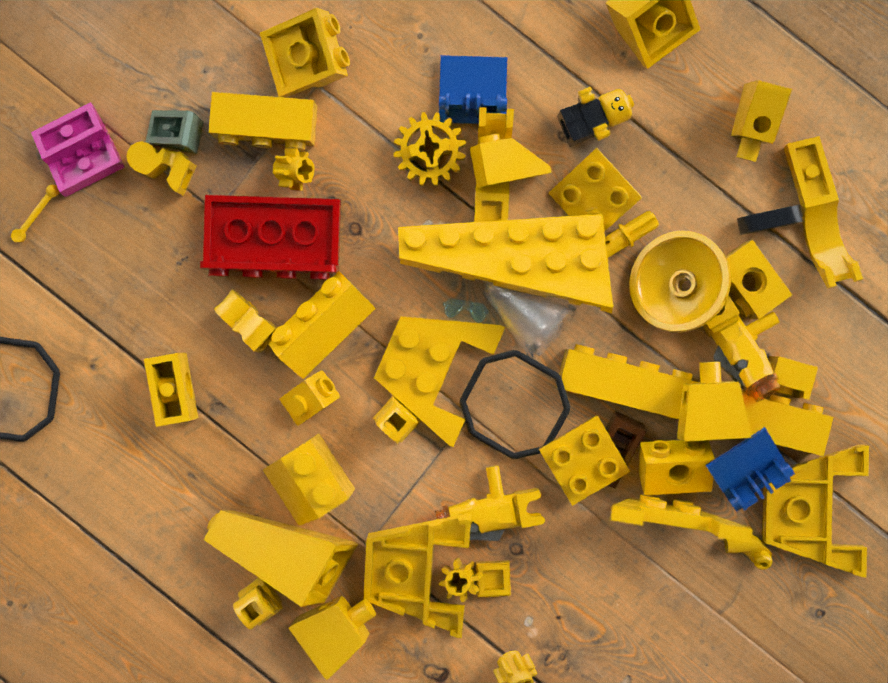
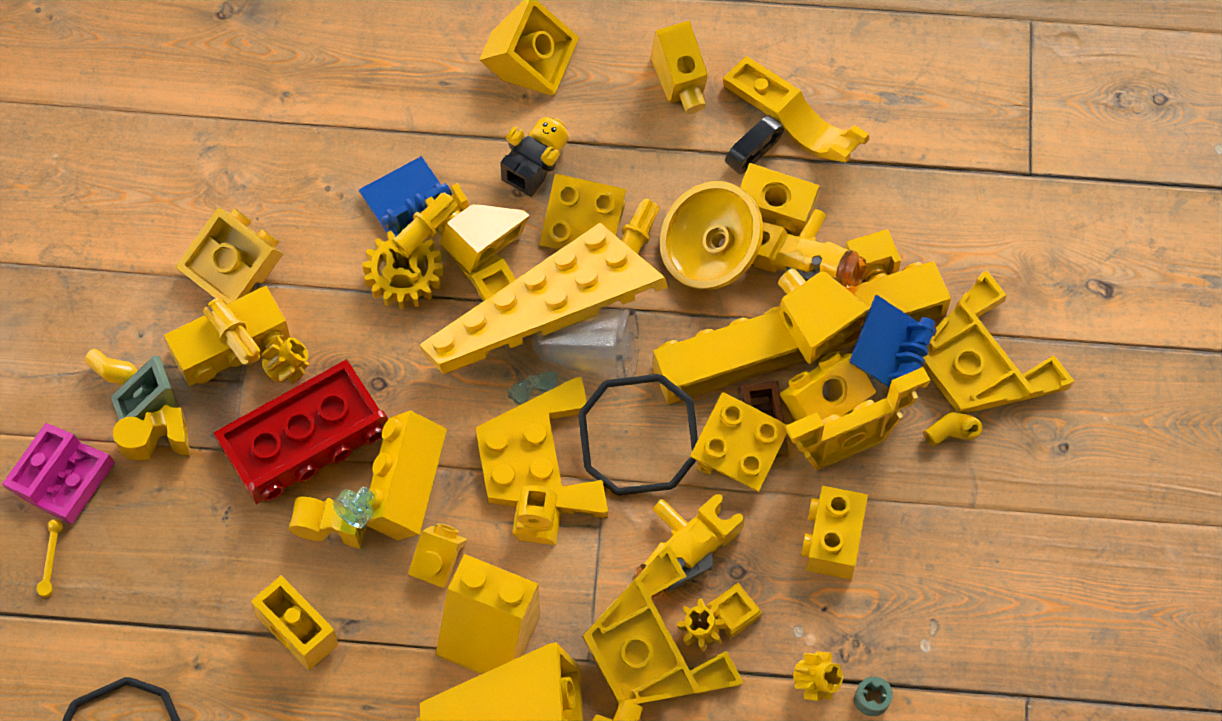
camera: 30 degrees left, 25 degrees down
(161, 90) = (110, 369): none -> yellow arm
(260, 127) = (232, 331): none -> yellow axle
(262, 336) = (354, 507): none -> clear light blue tile
(465, 130) = (424, 224): none -> yellow axle
(604, 574) = (836, 532): none -> yellow brick

